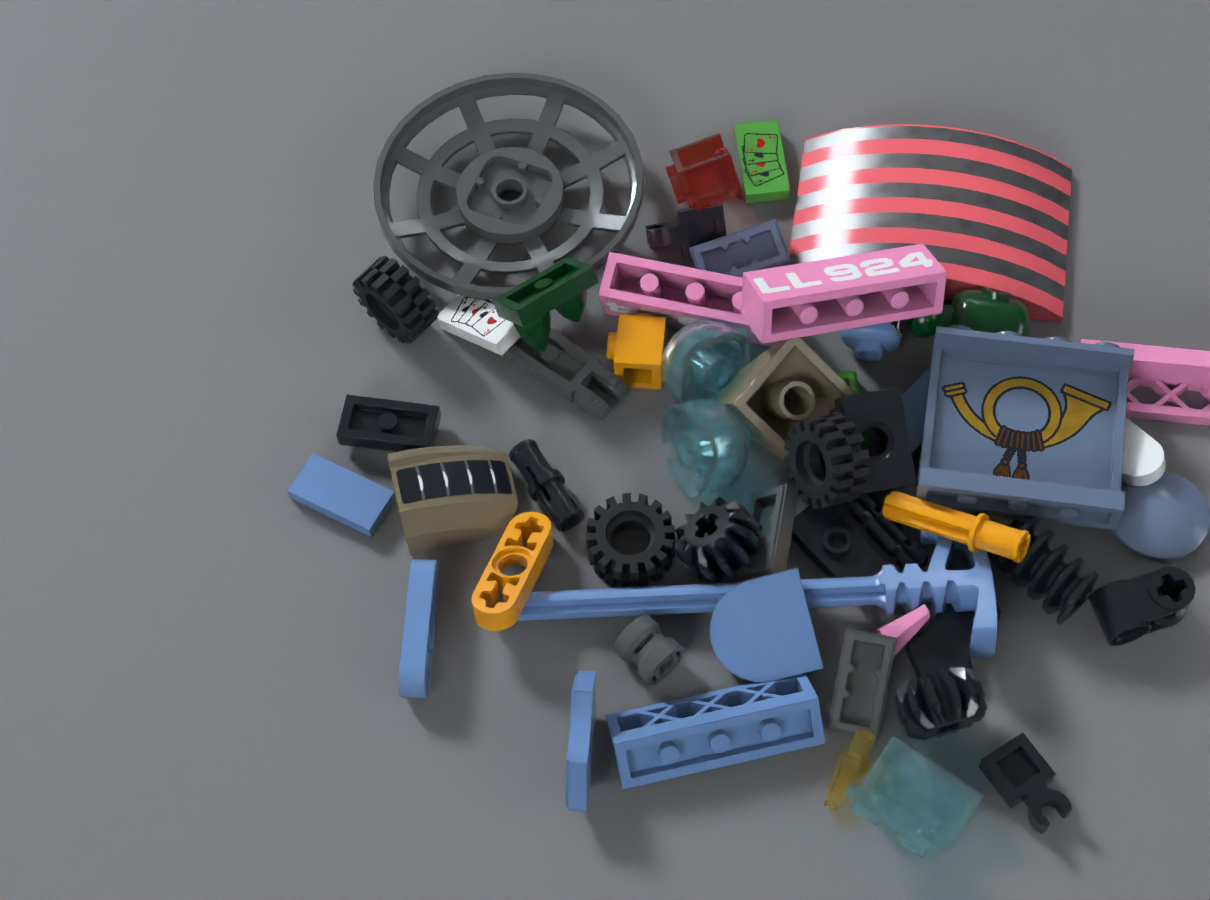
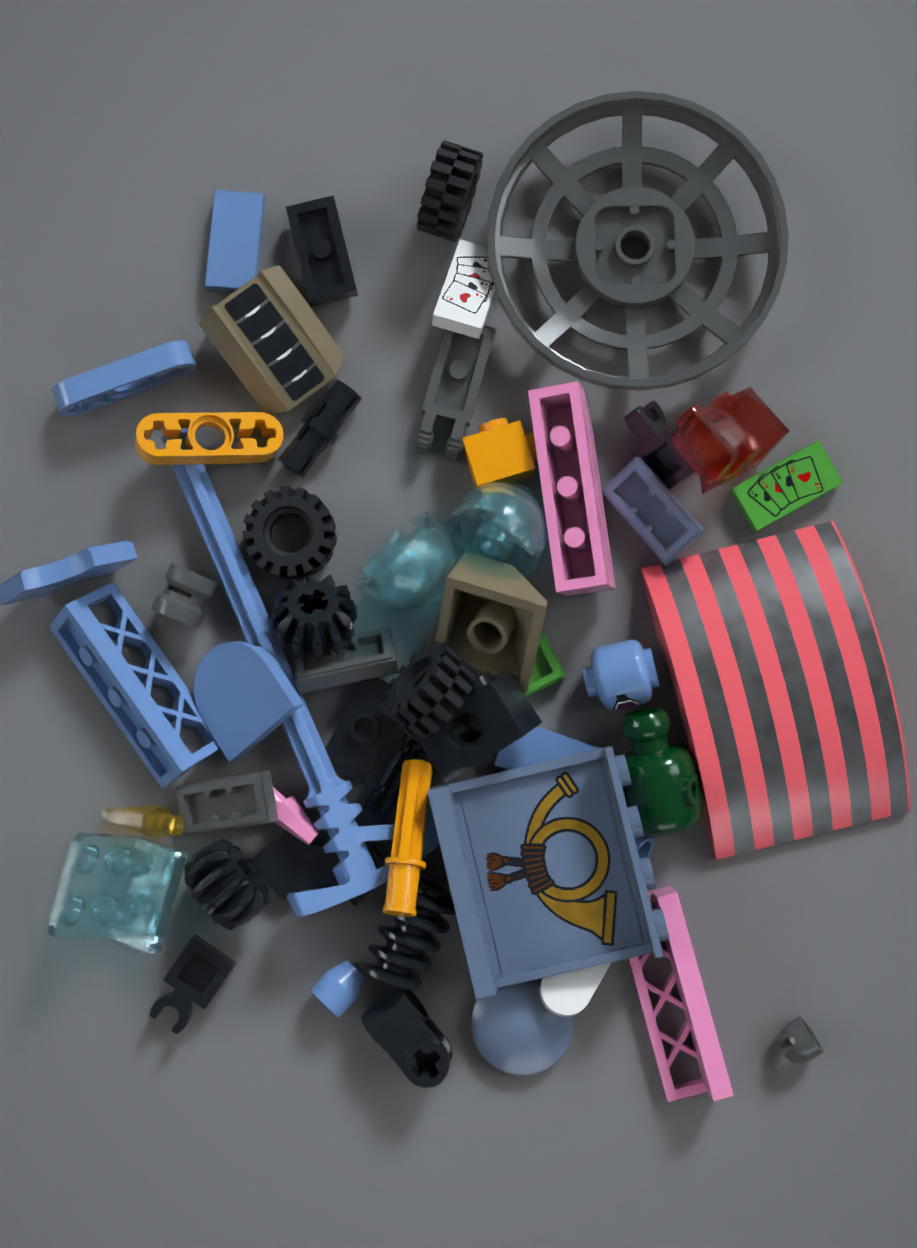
camera: 65 degrees right, 25 degrees up
(558, 288) = (503, 338): dark green tile -> none
(843, 293) = (609, 639): bright pink brick -> none
(1075, 655) = (339, 987): none -> medium blue hose

